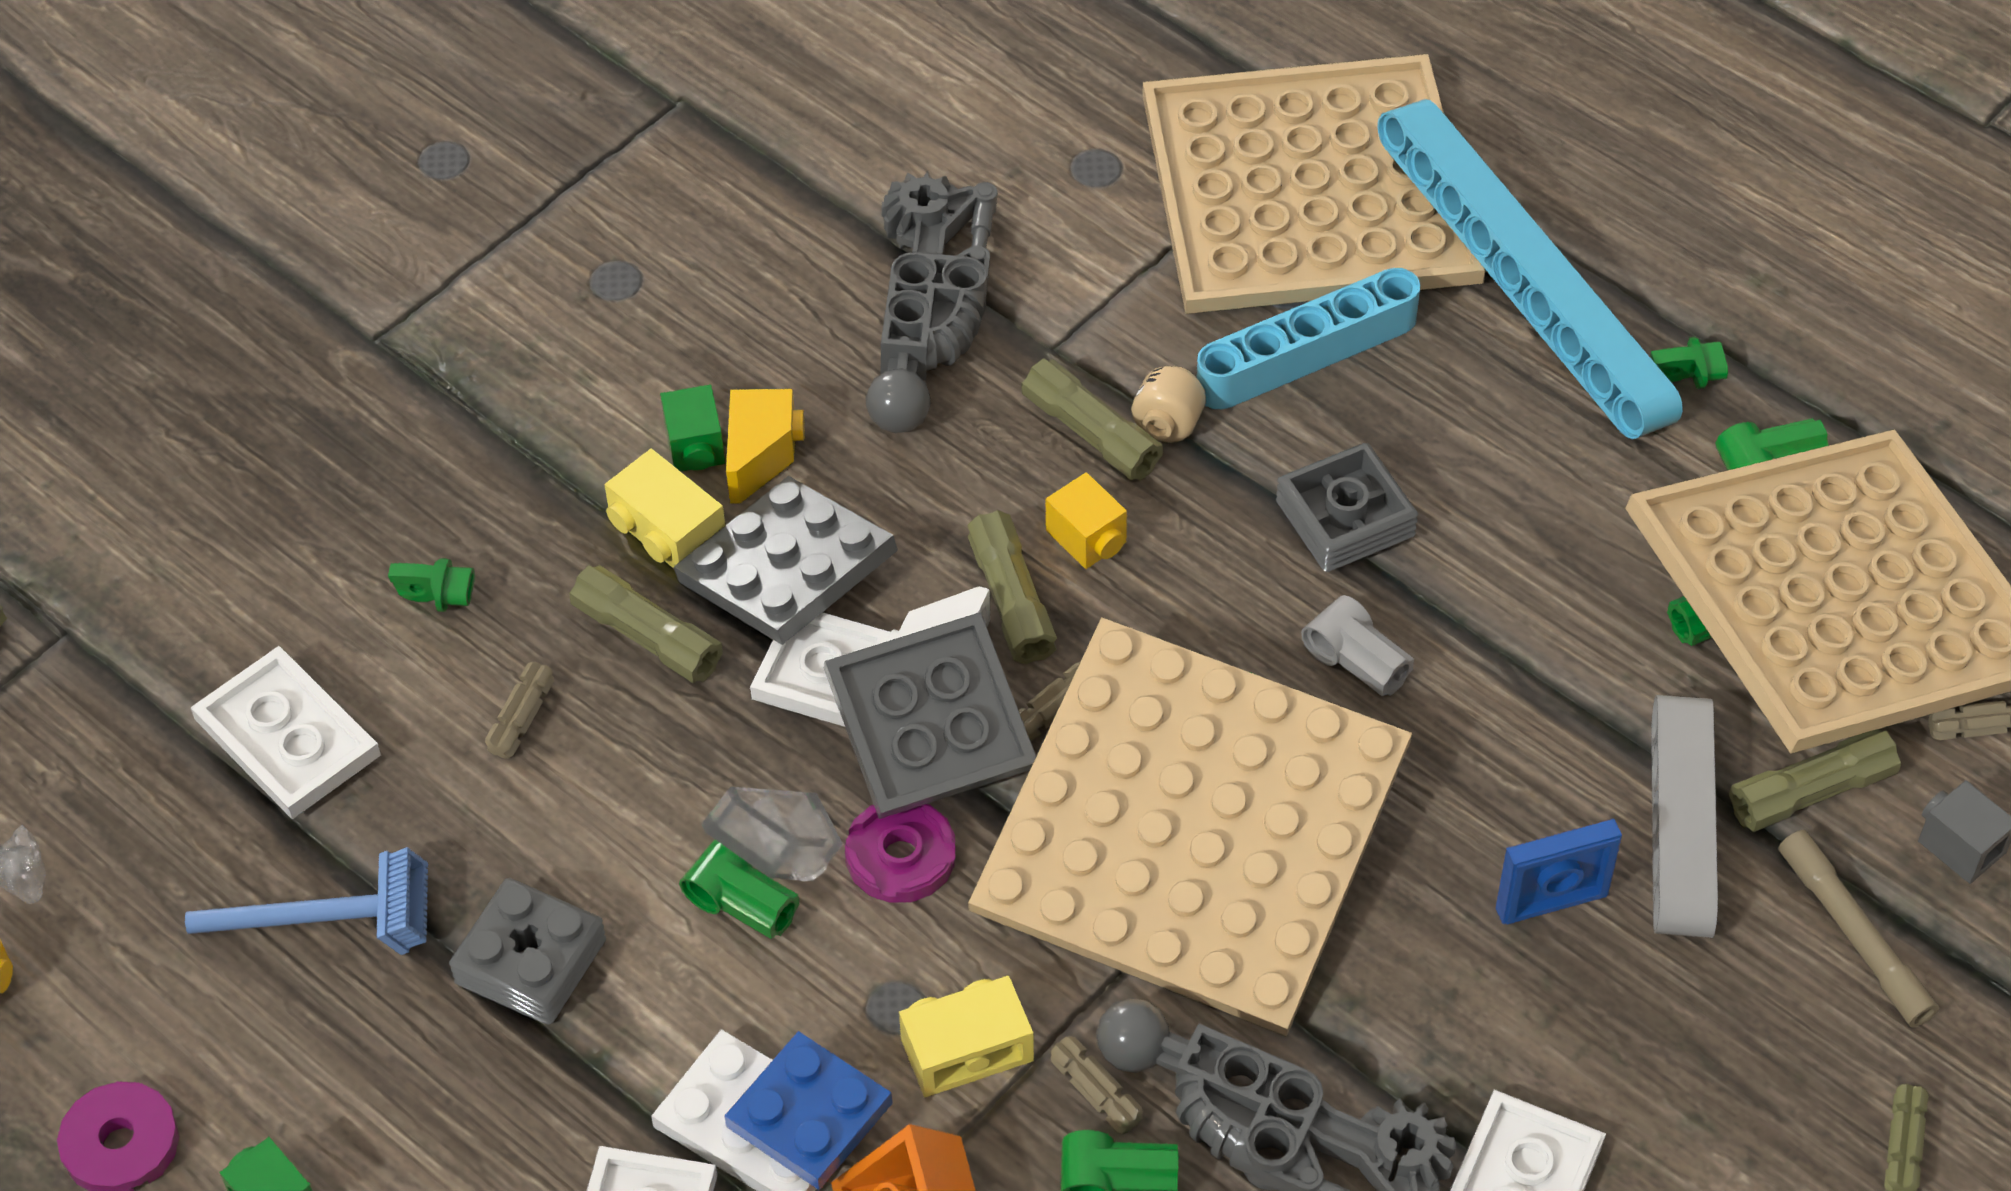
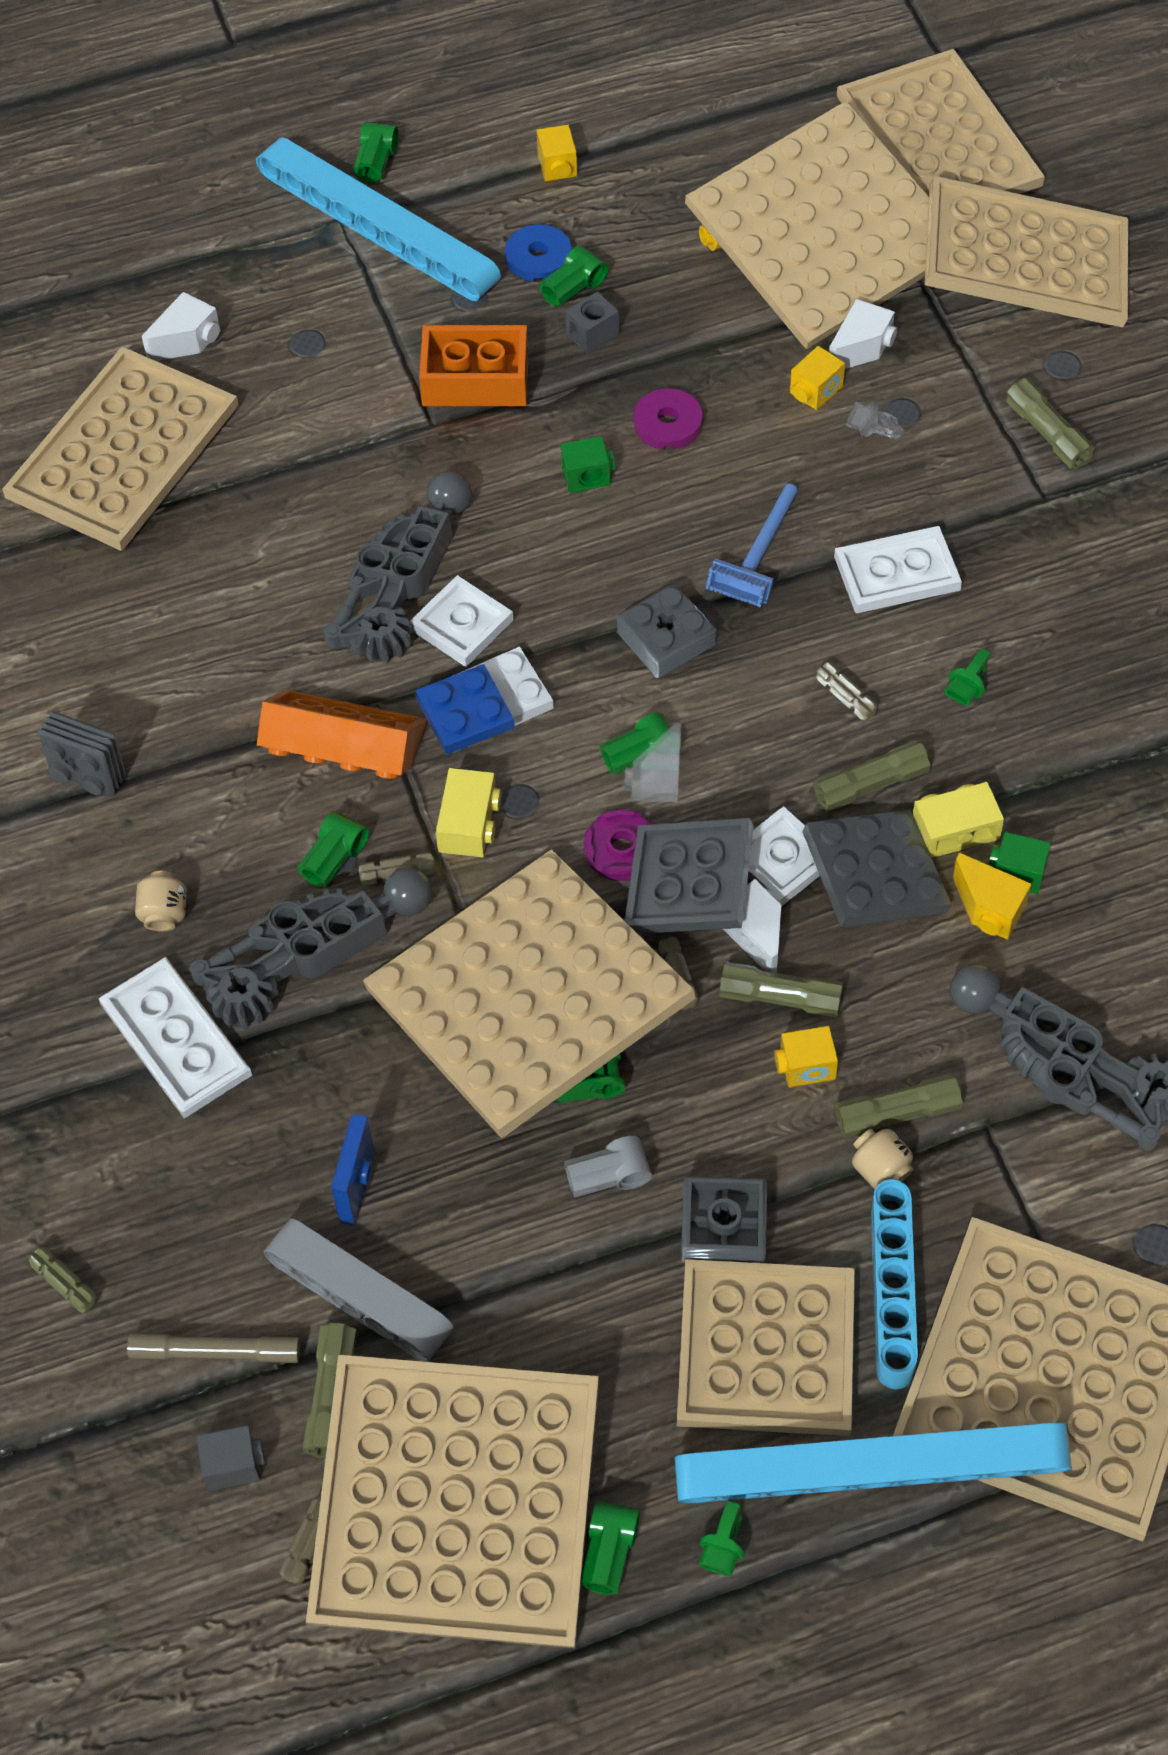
camera: 120 degrees right, 5 degrees up
(1460, 416) = (766, 1347): none -> tan plate

